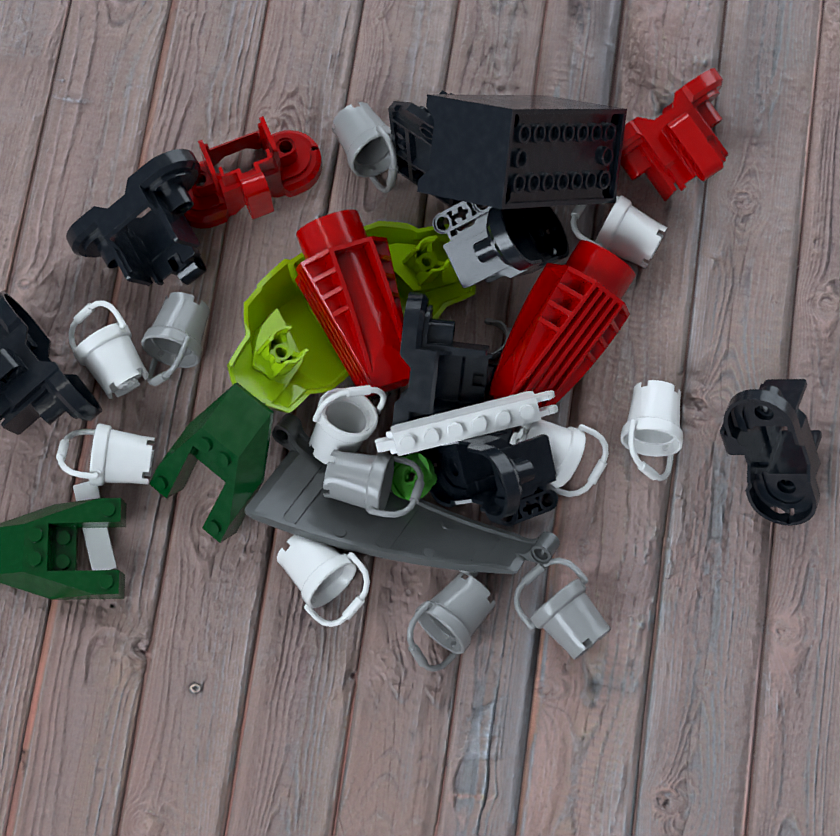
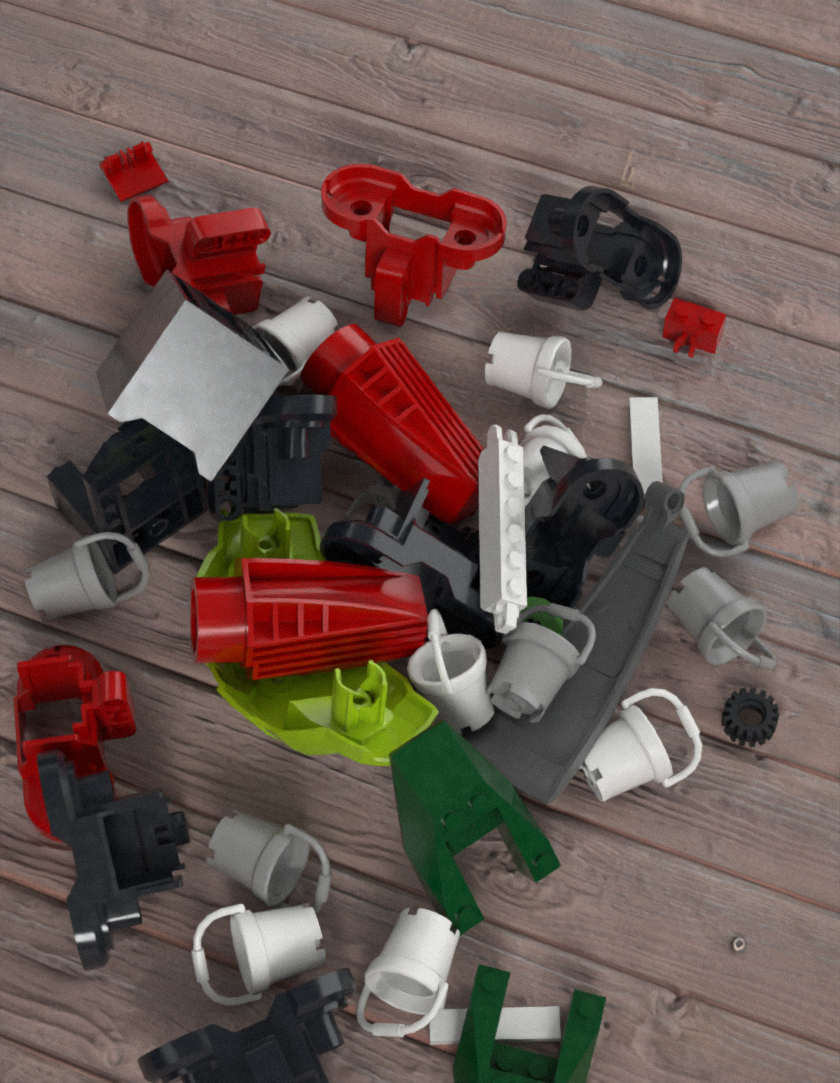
camera: 80 degrees left, 10 degrees down
(374, 647) = (754, 701): none -> black tyre
(612, 532) = (645, 440): none -> white tile
(741, 545) = (693, 326): none -> red brick
(770, 237) = (405, 267): none -> red piece
(771, 68) = (133, 171): none -> red hinge

